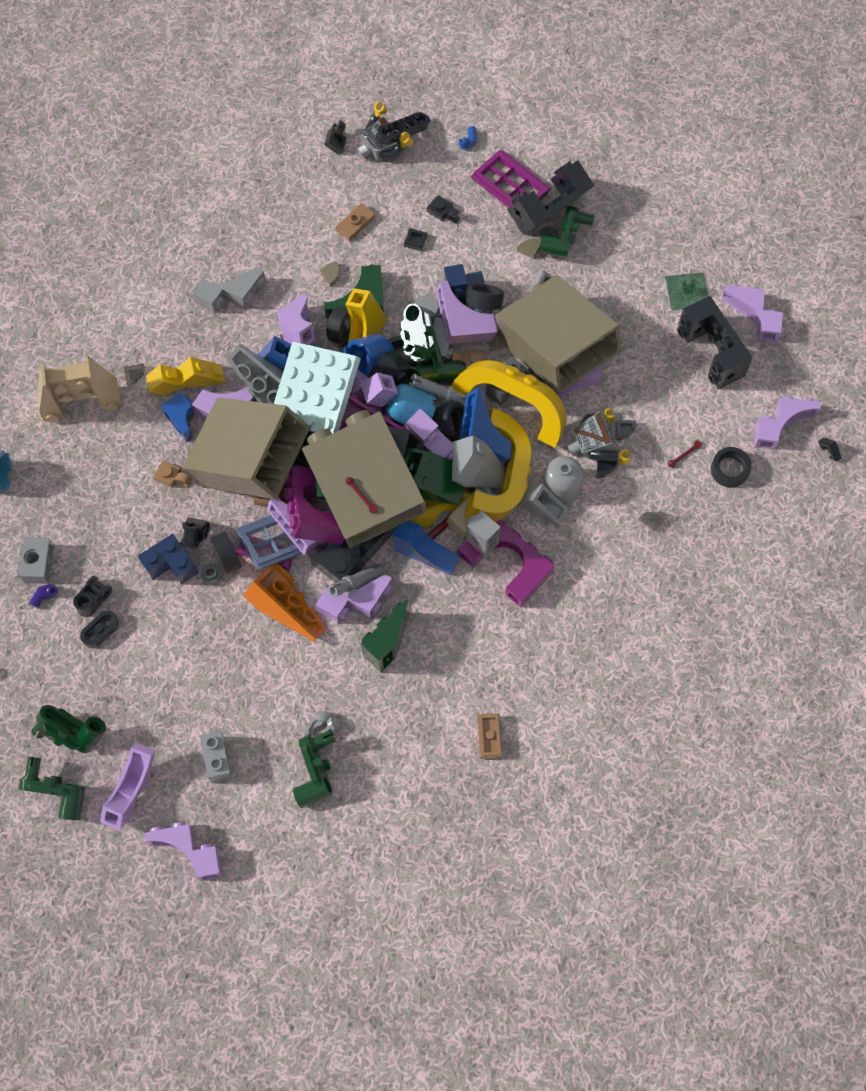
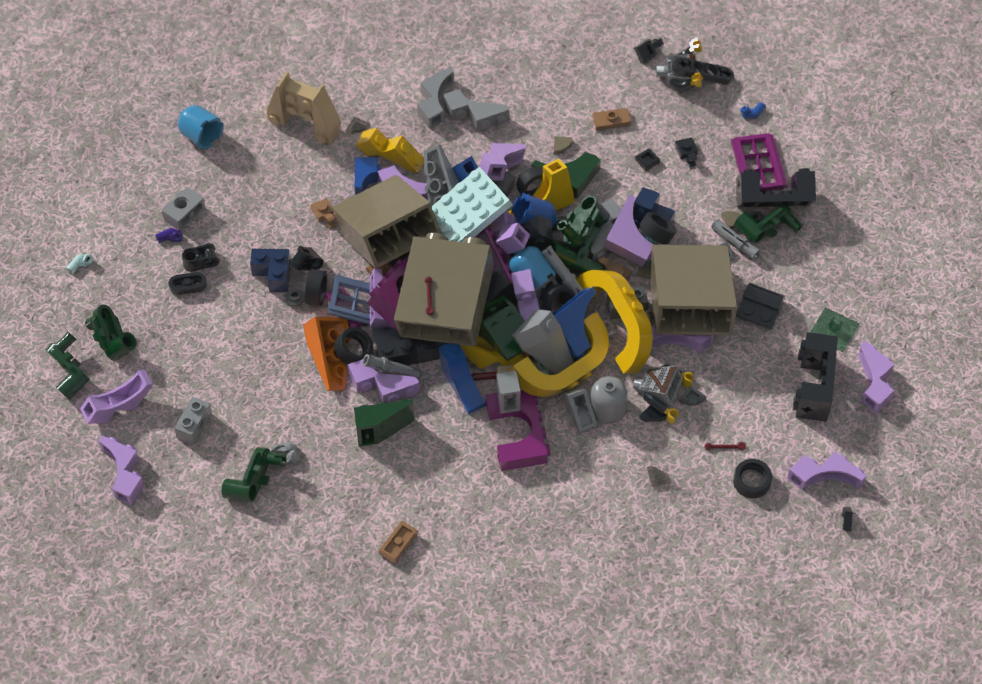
camera: 35 degrees right, 10 degrees down
(189, 315) = (432, 88): none -> light grey arch
(300, 595) = (359, 335): none -> black tyre
(547, 263) = (741, 243): none -> light grey pin
(619, 306) = (760, 305): none -> black brick

